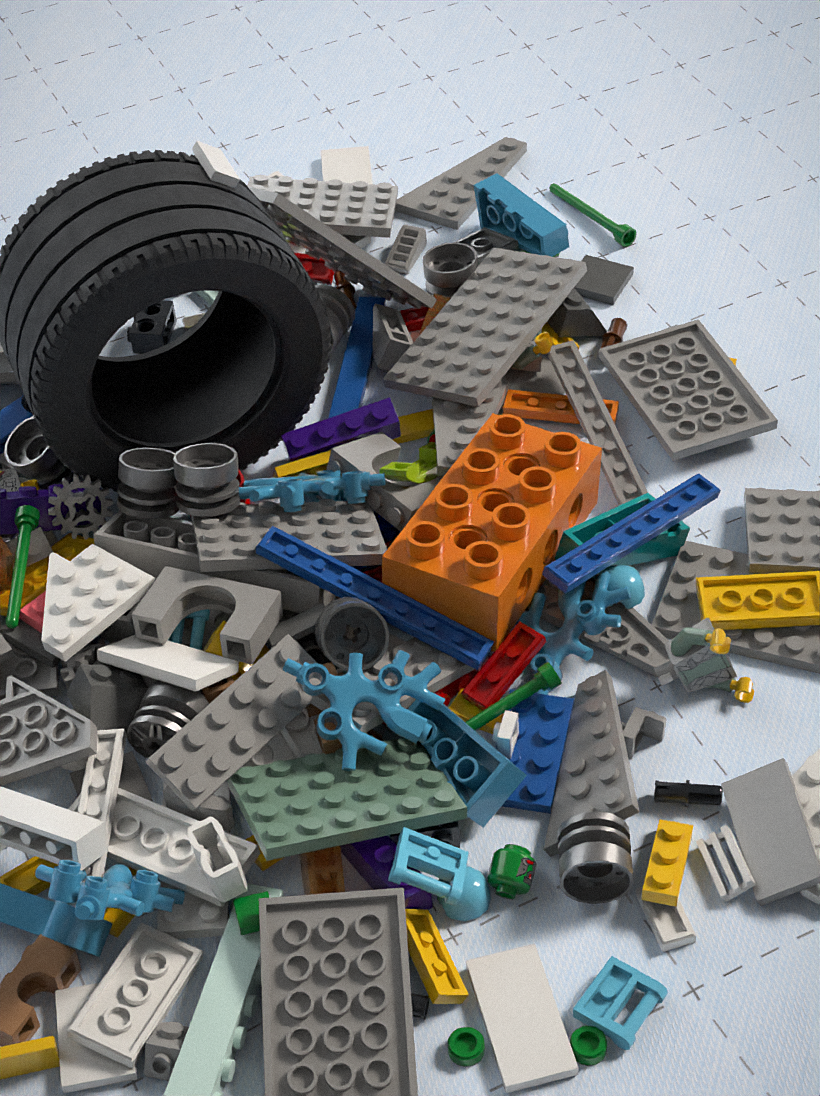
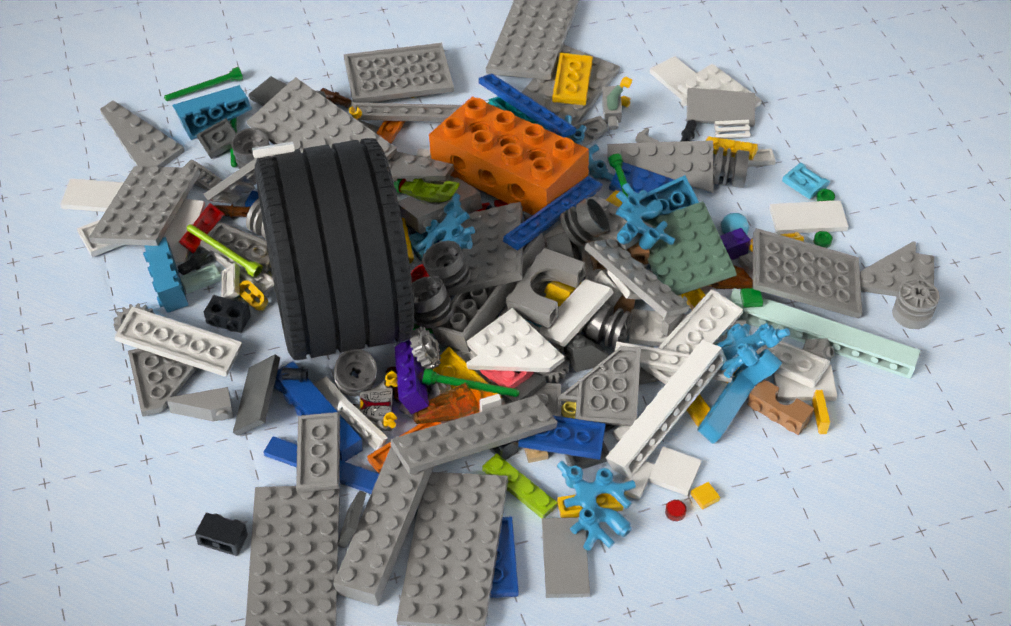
camera: 85 degrees left, 5 degrees up
(217, 859) = (728, 297): white brick -> none
(432, 858) = (730, 222): medium azure plate -> none
(504, 666) = (608, 190): red tile -> none
(506, 733) = (649, 182): white plate -> none
(511, 871) = (728, 203): green head -> none

